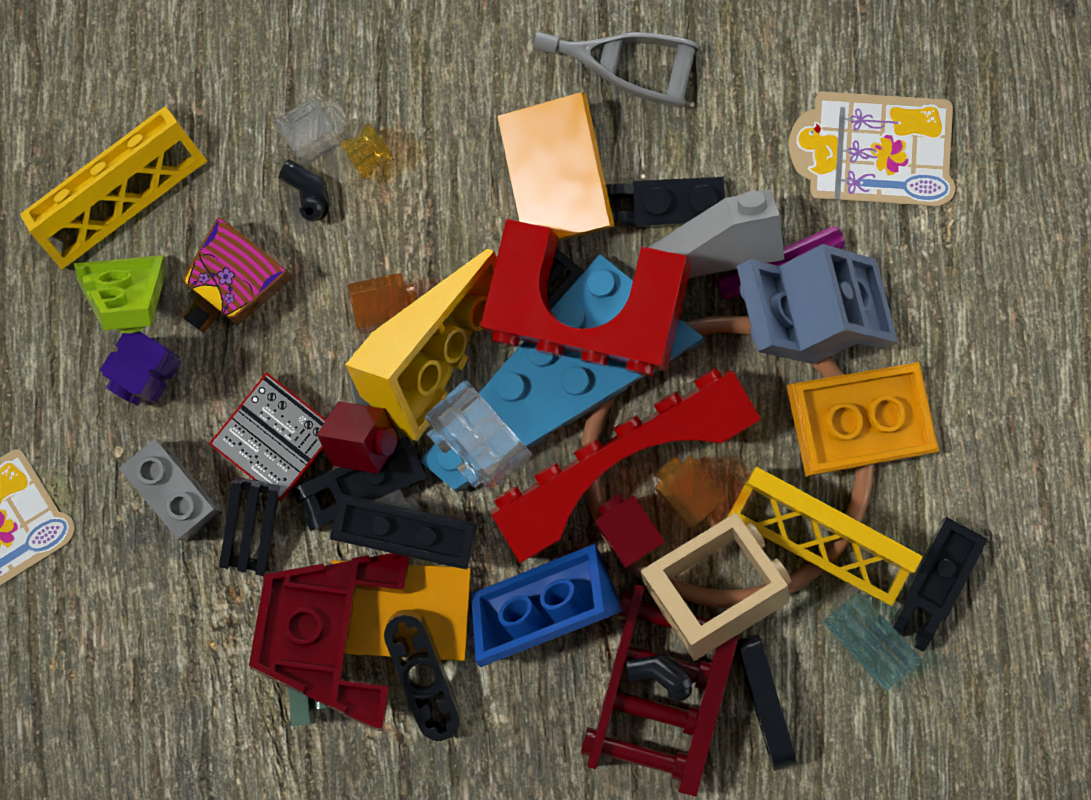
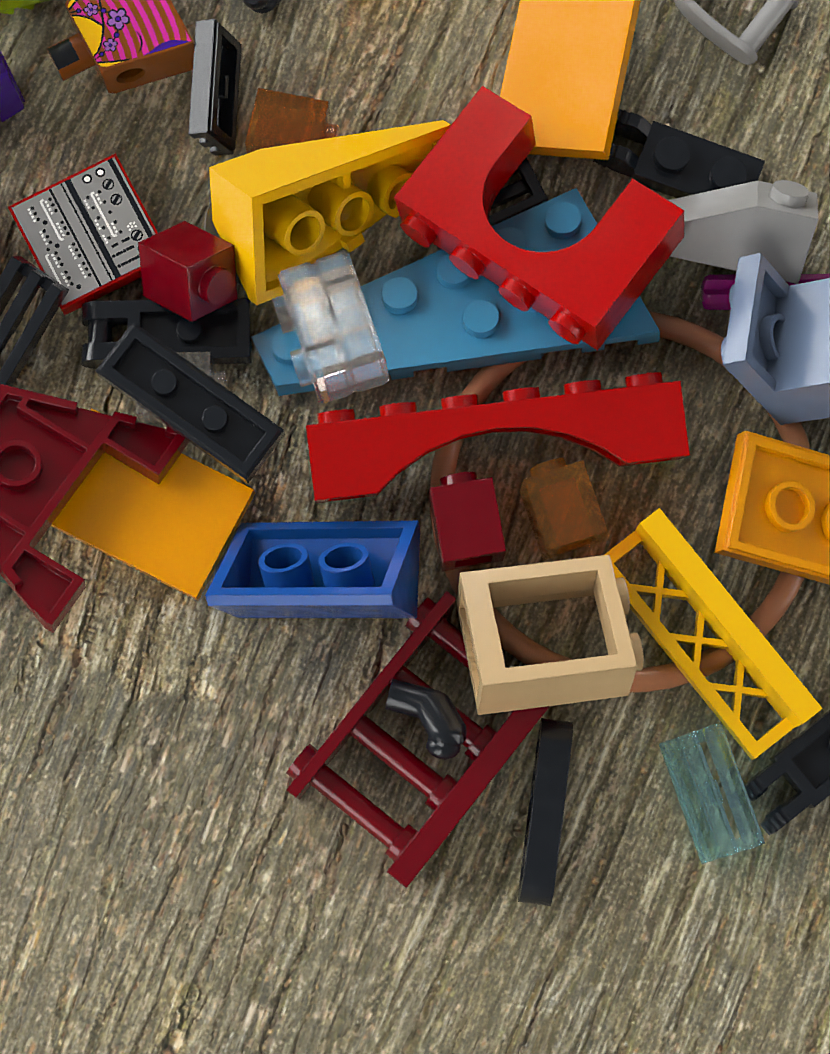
camera: 15 degrees right, 5 degrees down
(314, 292) = (215, 87): none -> black tile
(422, 710) = (148, 637): black beam -> none

